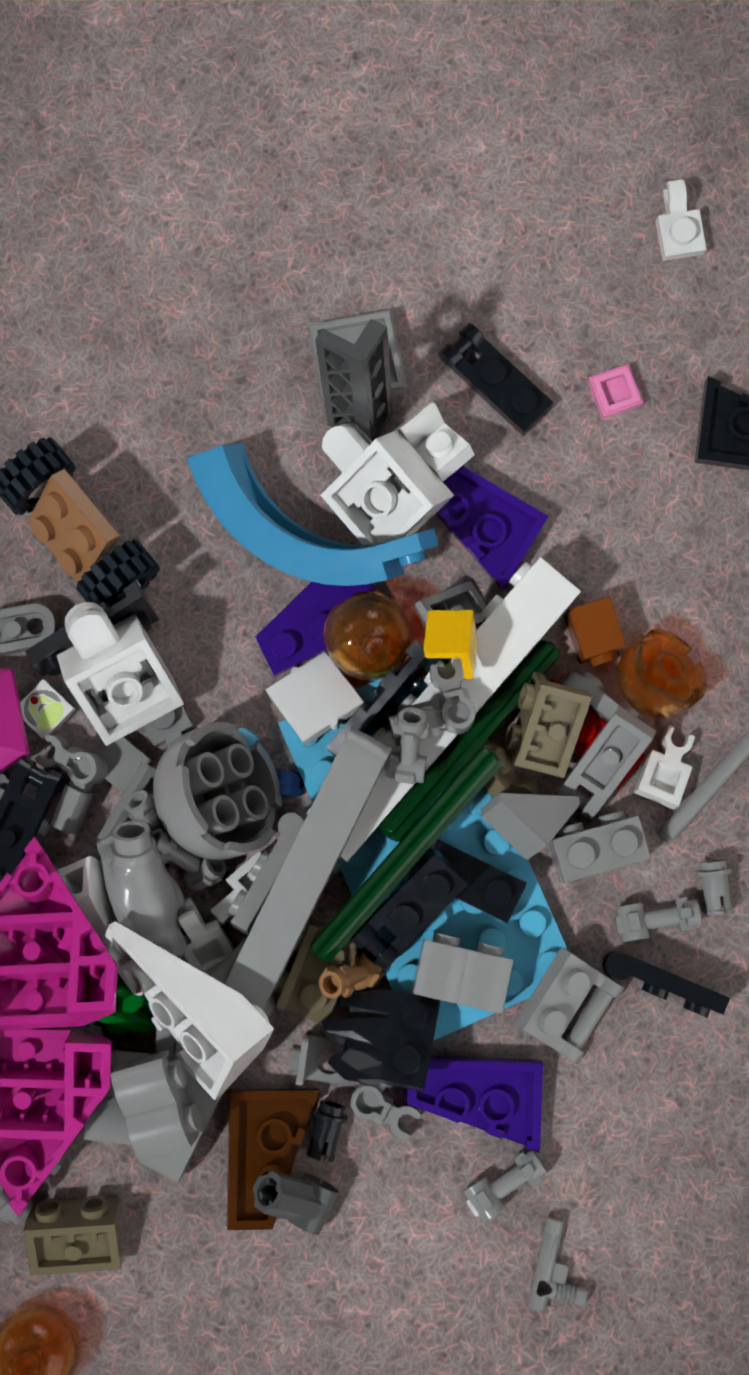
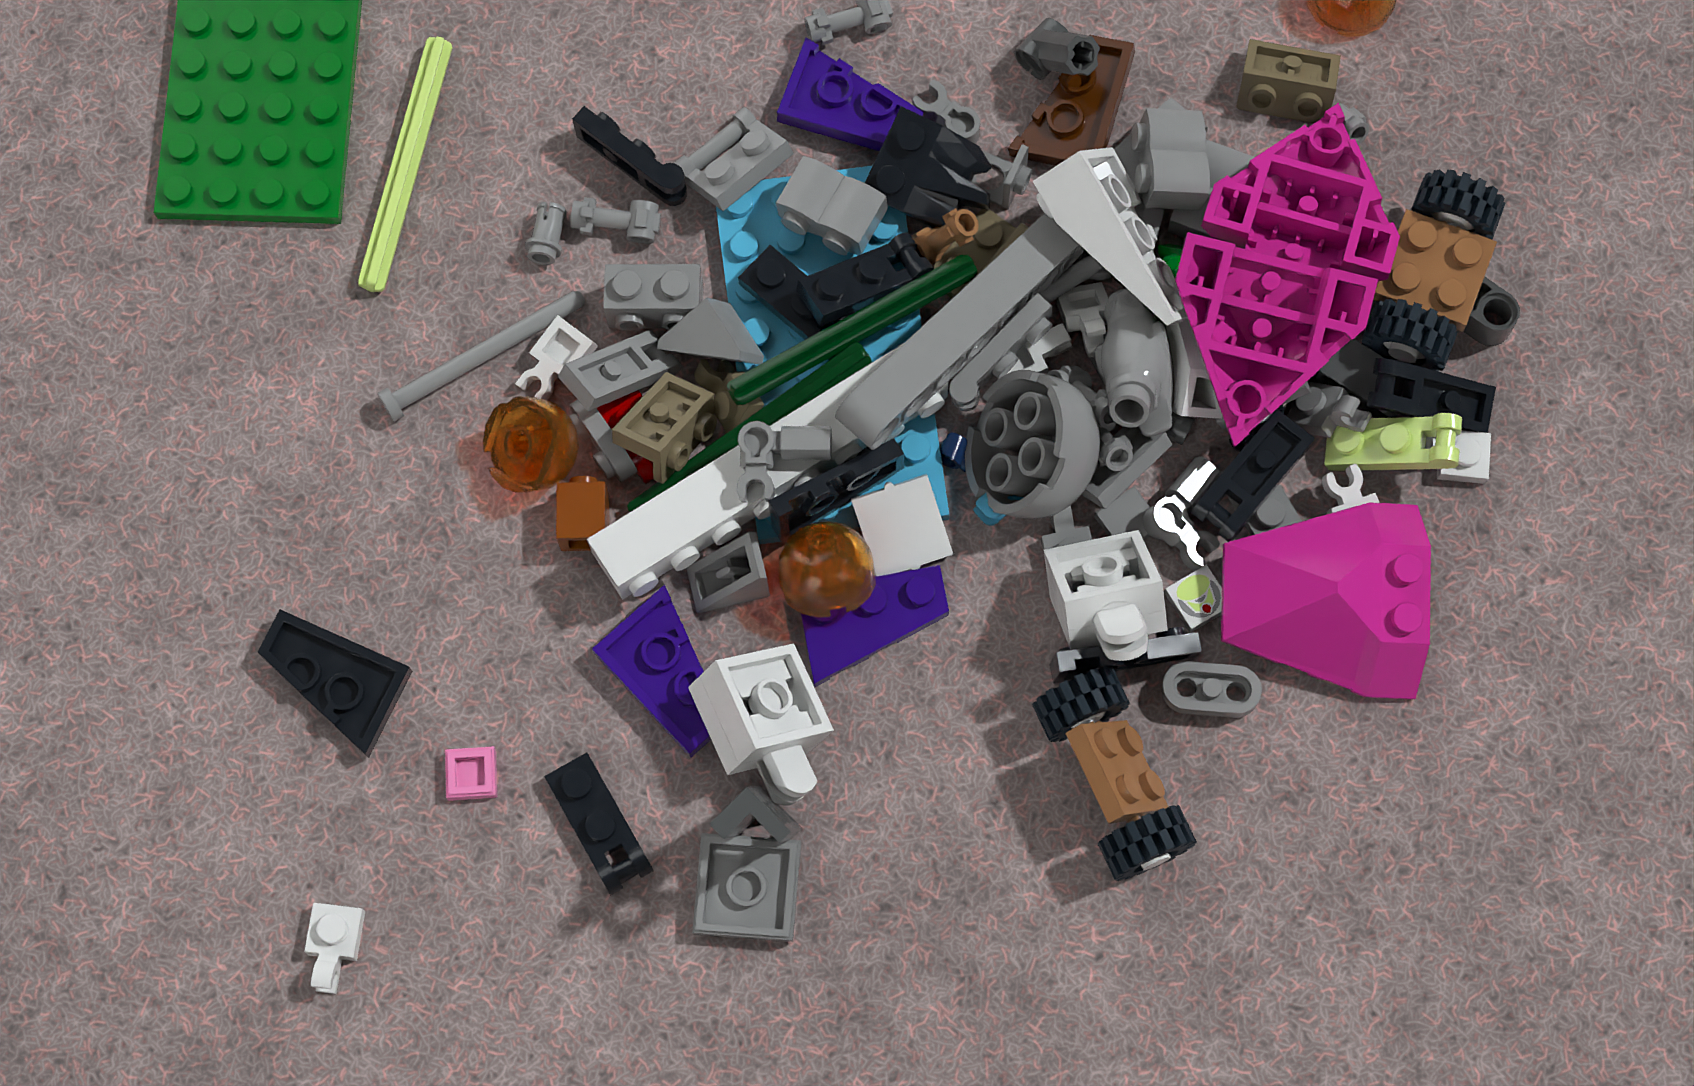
camera: 160 degrees left, 10 degrees down
(268, 533) = (882, 686): dark azure arch -> none
(326, 1130) = (1005, 119): black pin -> none
(407, 764) = (819, 410): light grey bar -> none
(436, 441) = (693, 762): white slope -> none
(452, 636) = (741, 510): yellow panel -> none

